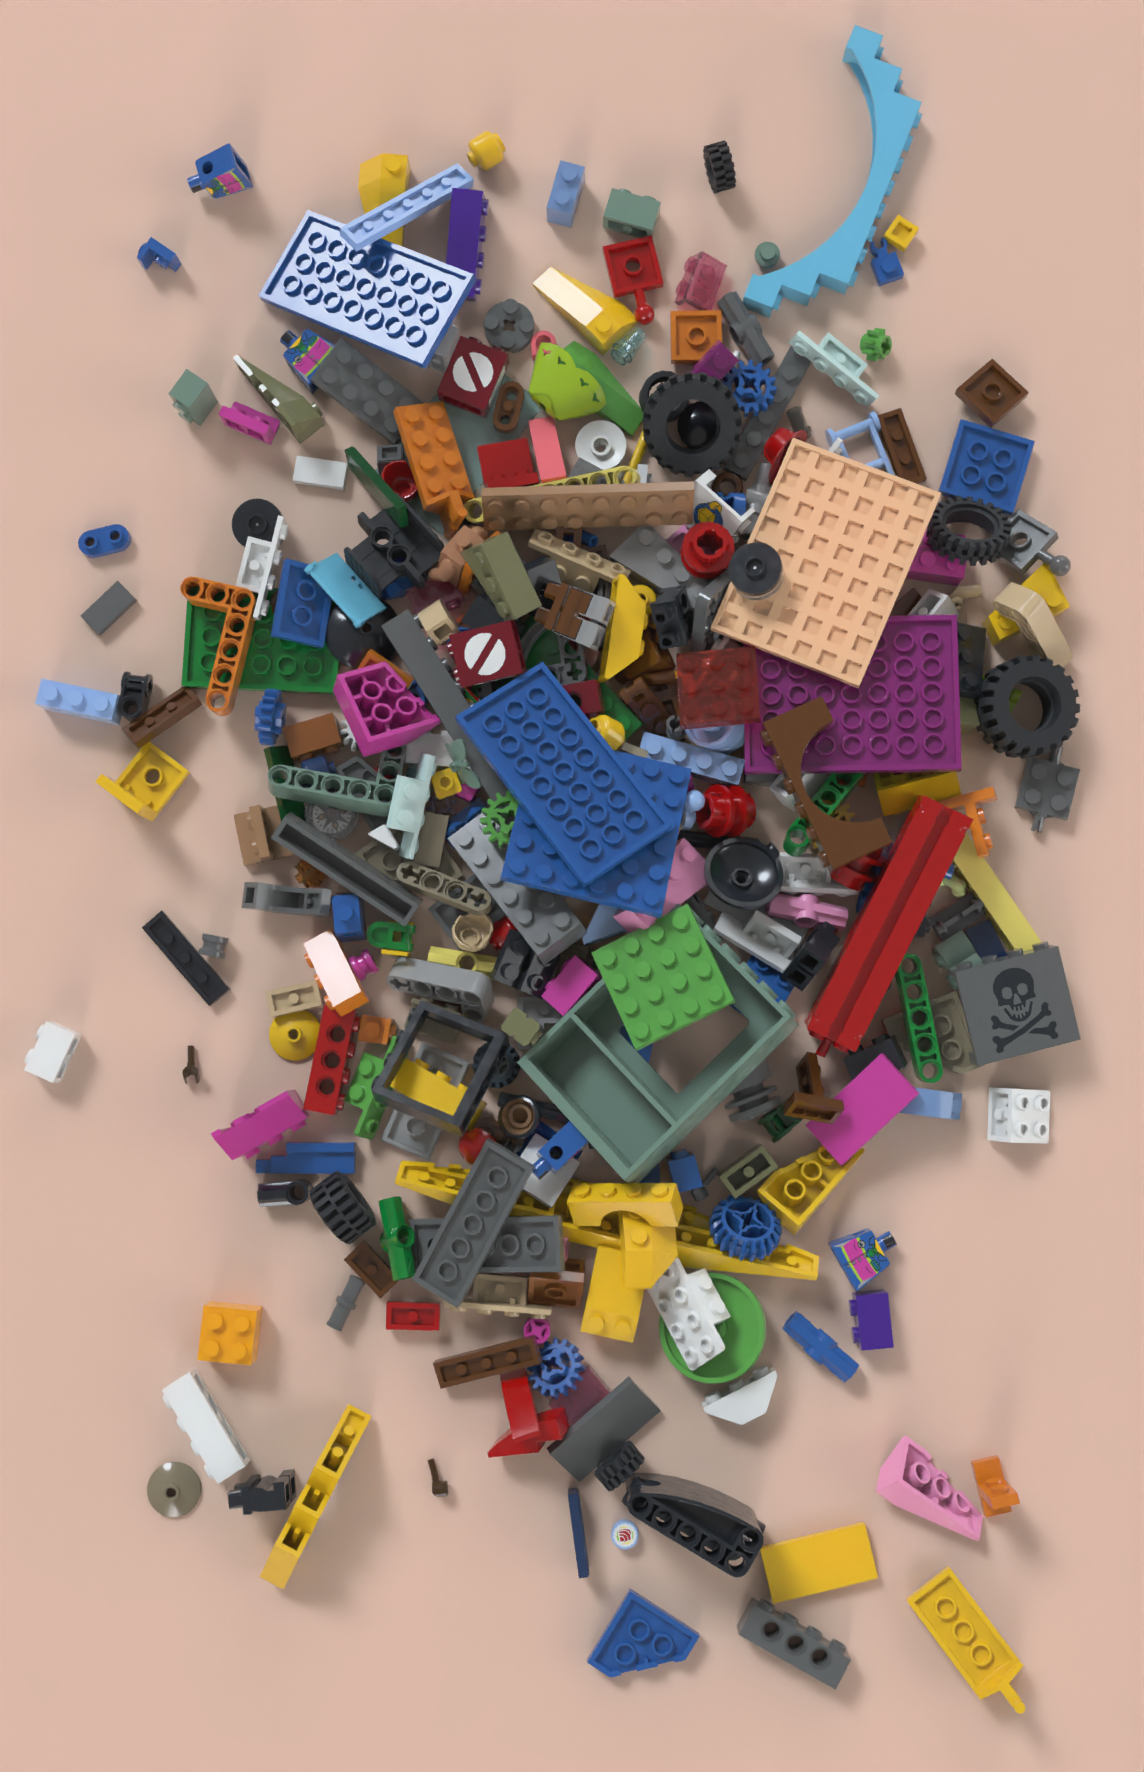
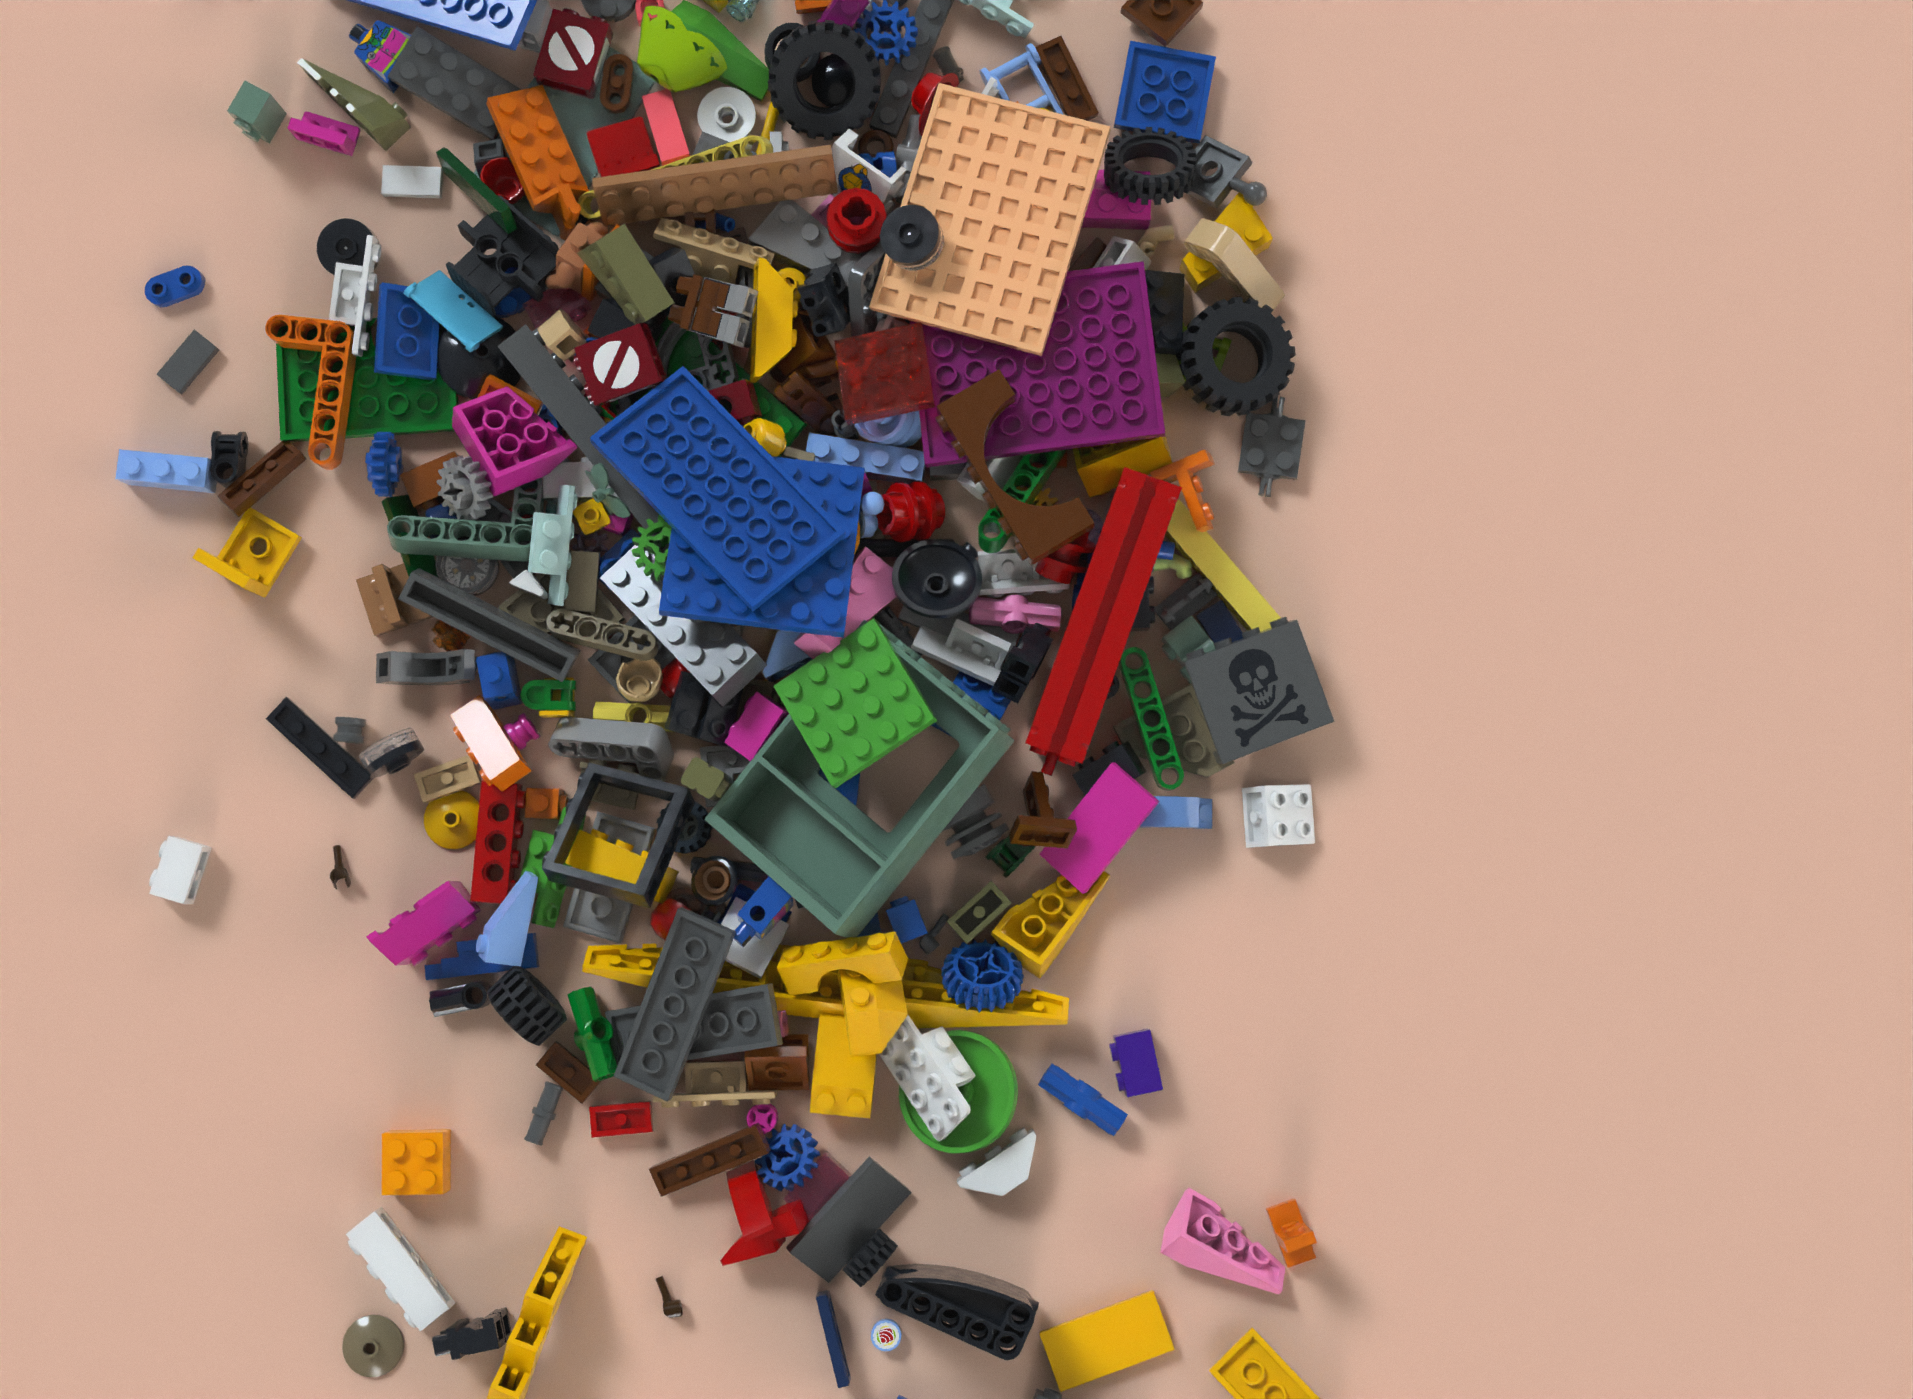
camera: 10 degrees left, 0 degrees up
(248, 971) = (391, 753): none -> piece
(333, 1137) = (508, 927): none -> light blue slope
(338, 747) = (464, 488): none -> light grey gear
(862, 1255) = (1119, 992): torso -> none

